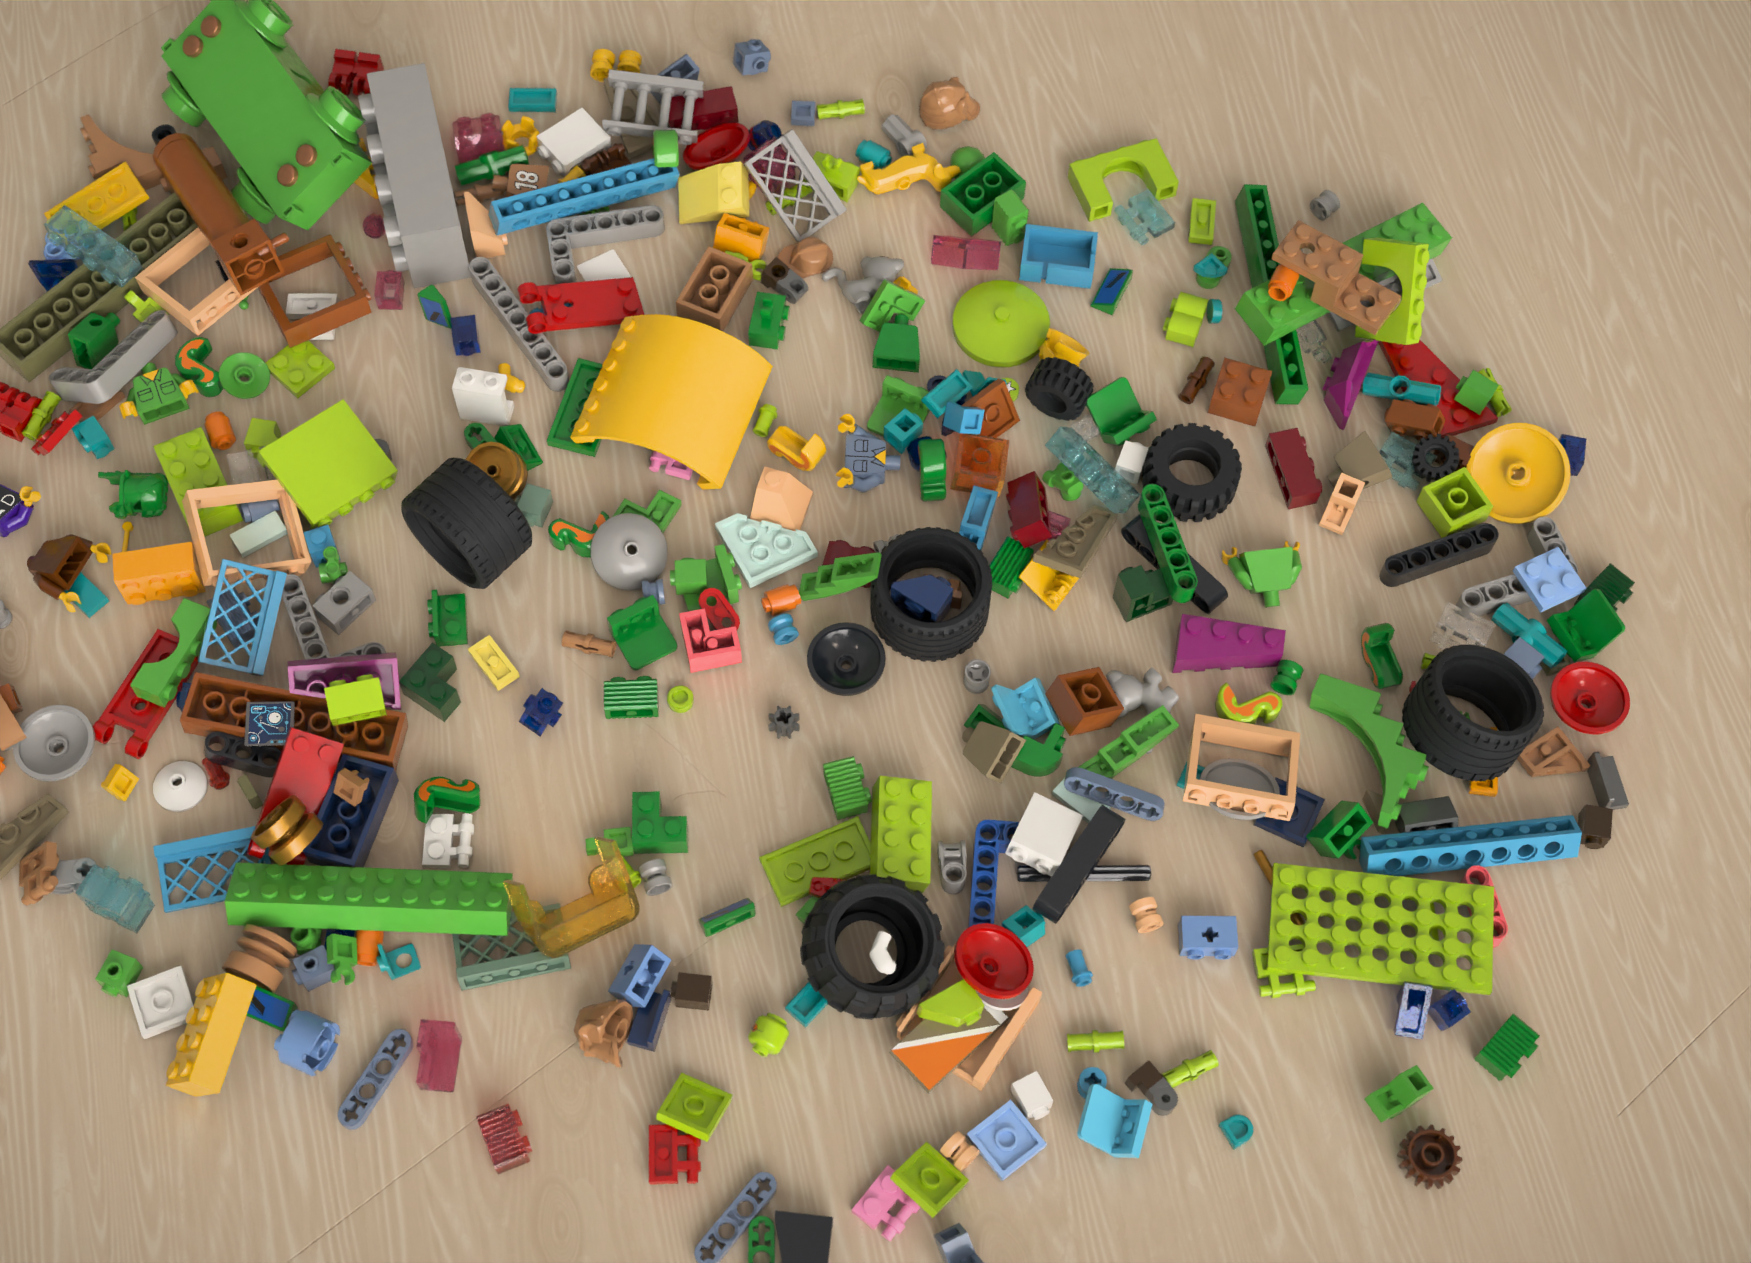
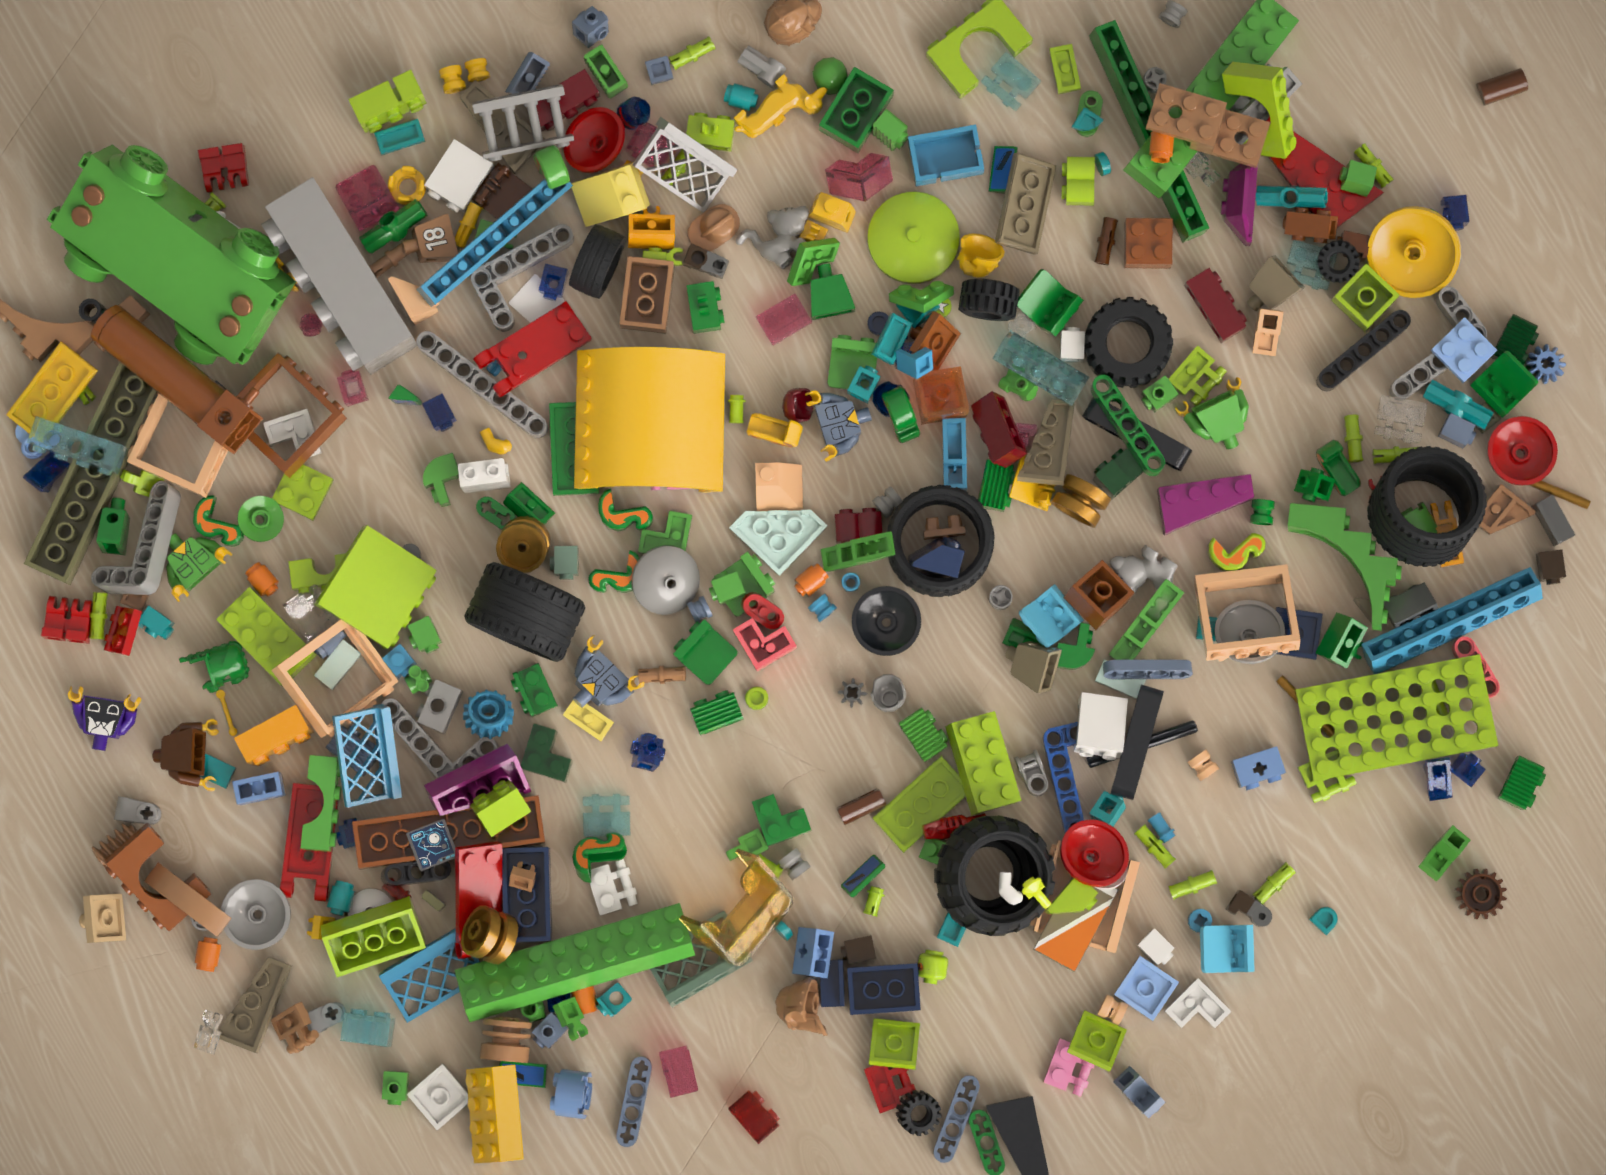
camera: 10 degrees left, 20 degrees up
(119, 621) = (259, 788): none -> medium blue brick
(153, 759) = (341, 898): none -> teal brick
(165, 803) = (373, 936): none -> lime brick
(359, 530) = (424, 635): none -> bright green brick
(389, 622) = (488, 703): none -> dark azure gear
(435, 391) = (437, 473): none -> bright green brick
(462, 768) = (602, 823): none -> clear light blue plate
(521, 624) = (601, 679): none -> sand blue torso
(523, 65) = (386, 104): none -> lime piece
(610, 484) = (622, 519): none -> green animal
(616, 943) = (783, 930): none -> teal tile
(627, 255) = (550, 274): none -> clear blue brick
(676, 241) = (597, 261): none -> black tyre
(703, 1041) = (883, 989): none -> dark blue brick
(710, 1200) = (909, 1104): none -> black tyre
(729, 943) = (873, 900): none -> lime pin
(750, 96) = (605, 71): none -> bright green brick
(751, 839) = (861, 806): none -> reddish brown brick
(822, 608) = (850, 576): none -> dark azure hose
(823, 732) = (888, 693): none -> light grey hair
(826, 428) = (795, 405): none -> dark red hair
(843, 355) = (783, 319): none -> clear pink plate
(911, 960) = (1032, 888): none -> neon yellow plate
(928, 272) = (832, 212): none -> yellow torso
(991, 368) = (923, 299): none -> bright green plate
(1060, 1172) = (1198, 999): none -> white plate
(1064, 985) = (1155, 846): none -> lime pin
(1094, 603) = (1080, 500): none -> pearl gold wheel
(1124, 322) = (1025, 203): none -> dark tan tile
(1209, 532) = (1159, 394): none -> bright green brick
(1251, 521) = (1192, 370): none -> lime plate
(1351, 664) = (1314, 485): none -> green brick
(1406, 636) = (1353, 438): none -> lime pin
(1619, 757) = (1563, 494): none -> pearl gold bar
(1638, 624) = (1541, 356): none -> medium blue gear
(1646, 360) = (1502, 86): none -> reddish brown brick

